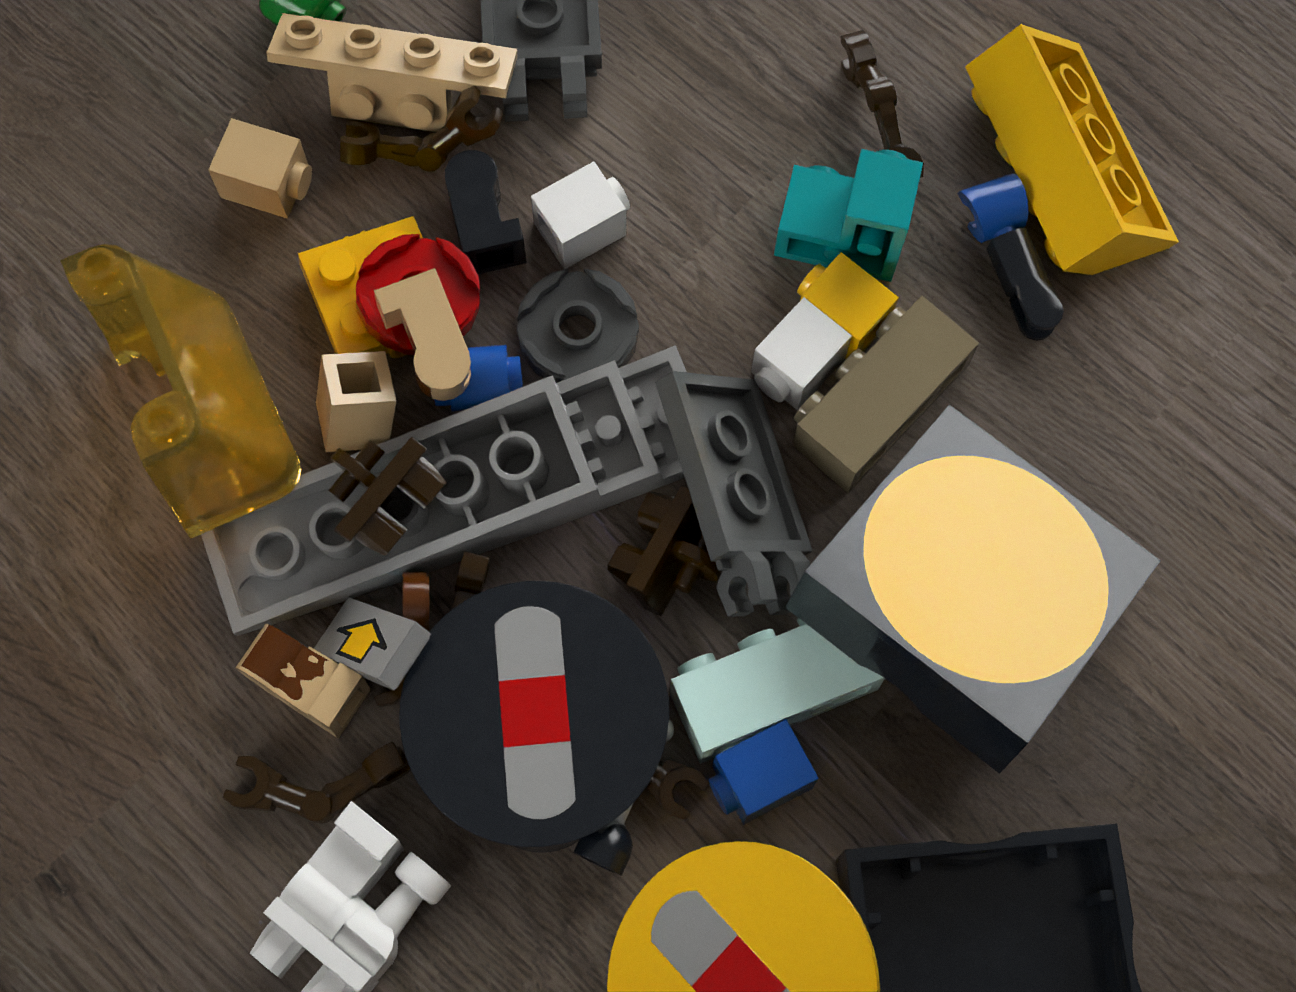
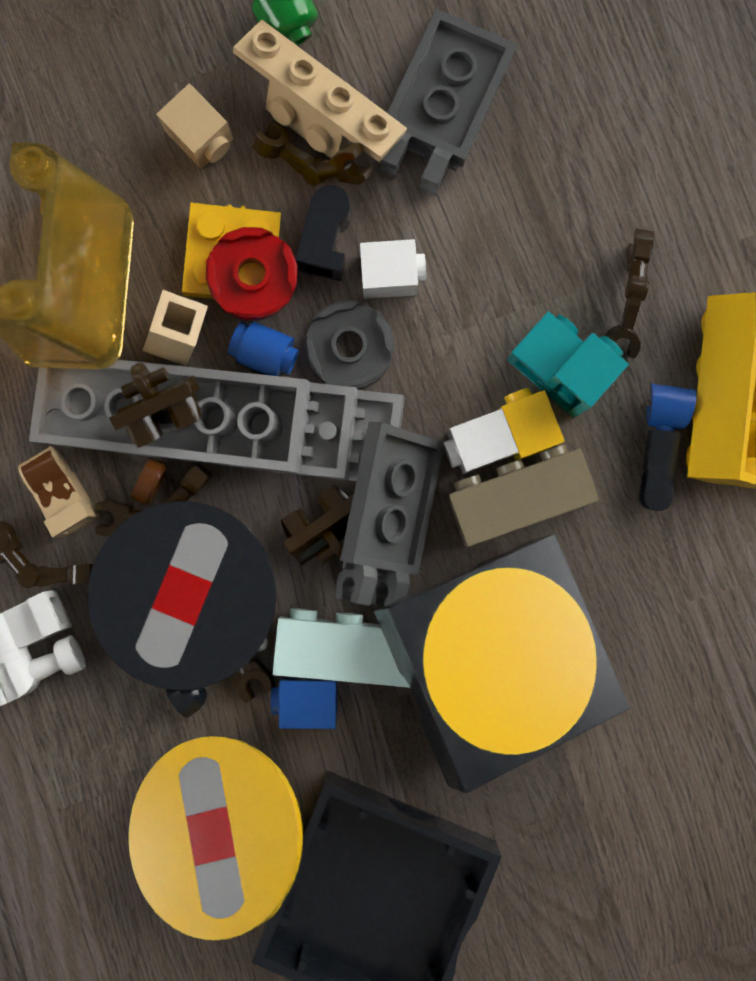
camera: 30 degrees right, 15 degrees up
(373, 642) = (106, 496): light grey tile -> none
(439, 348) = (239, 328): tan leg -> none

